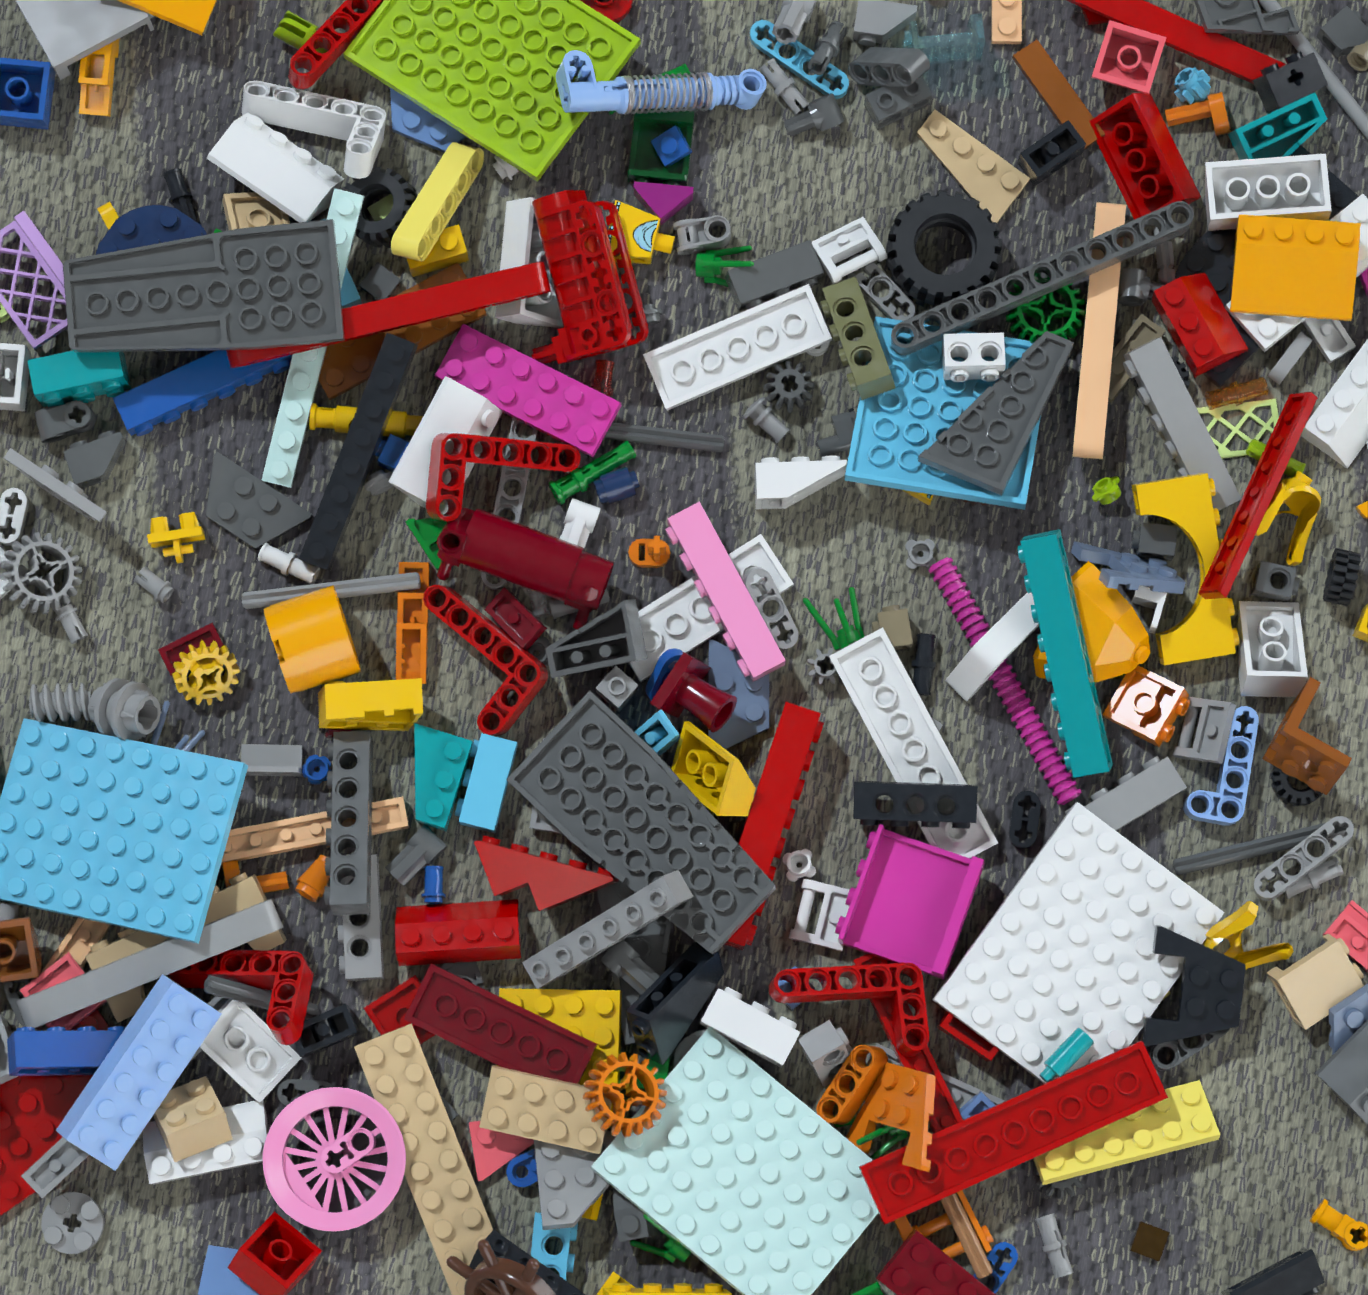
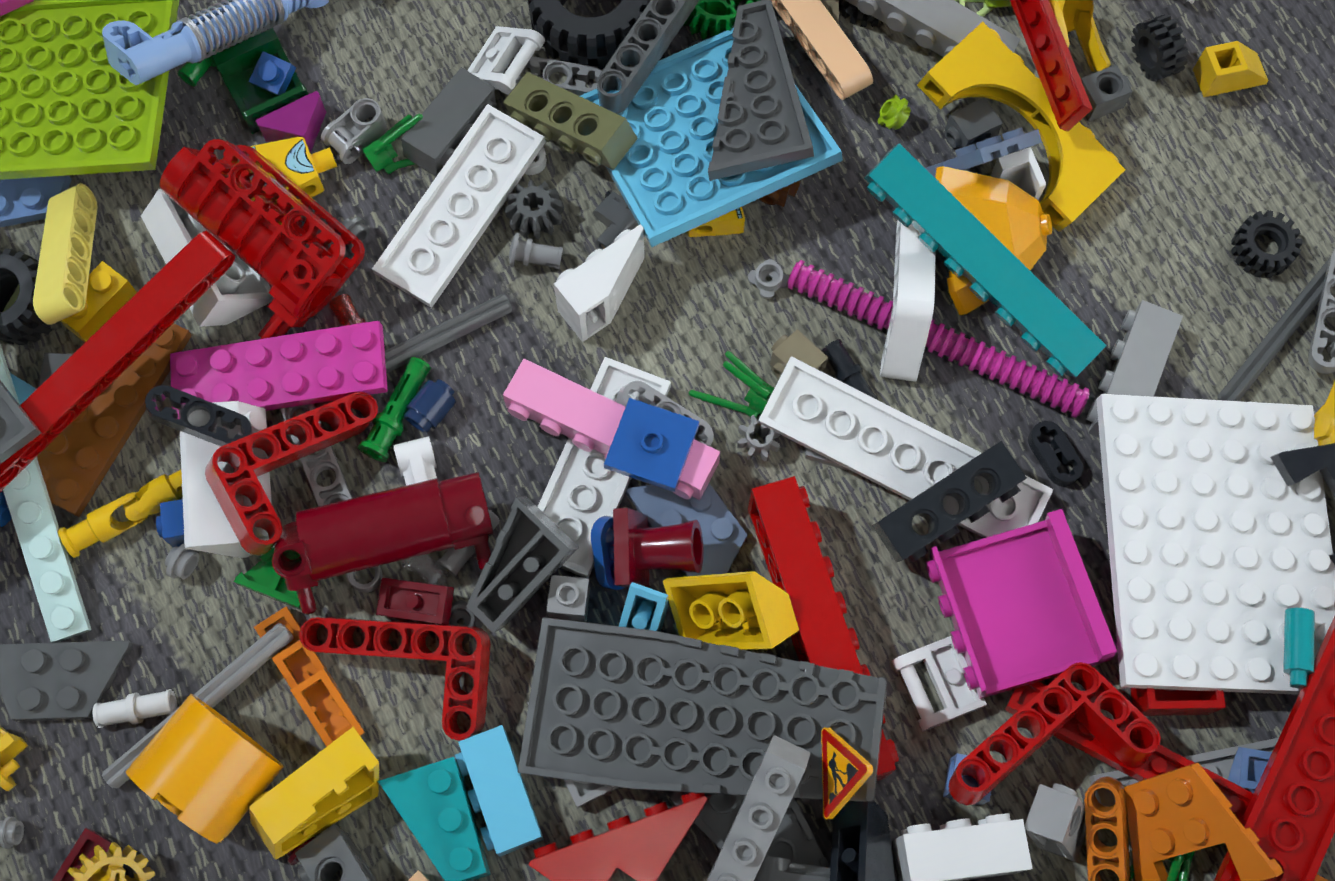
camera: 35 degrees left, 10 degrees down
(358, 451) = (134, 542): black brick -> none
(434, 381) = (177, 397): none -> black beam
(504, 169) = (120, 189): white plate -> none
(656, 553) = (512, 440): orange piece -> none
(703, 922) = (842, 772): none -> piece
(742, 624) = (651, 444): none -> blue plate
(803, 857) = (874, 639): white plate -> none
(973, 348) = (688, 66): white brick -> none
(1147, 705) = (1084, 269): plate -> none
(1211, 732) = (1161, 250): light grey plate -> none
(1231, 764) = (1185, 235): light blue beam -> none
(1270, 649) = (1155, 152): white slope -> none
(1301, 753) = (1248, 207): dark orange bracket -> none

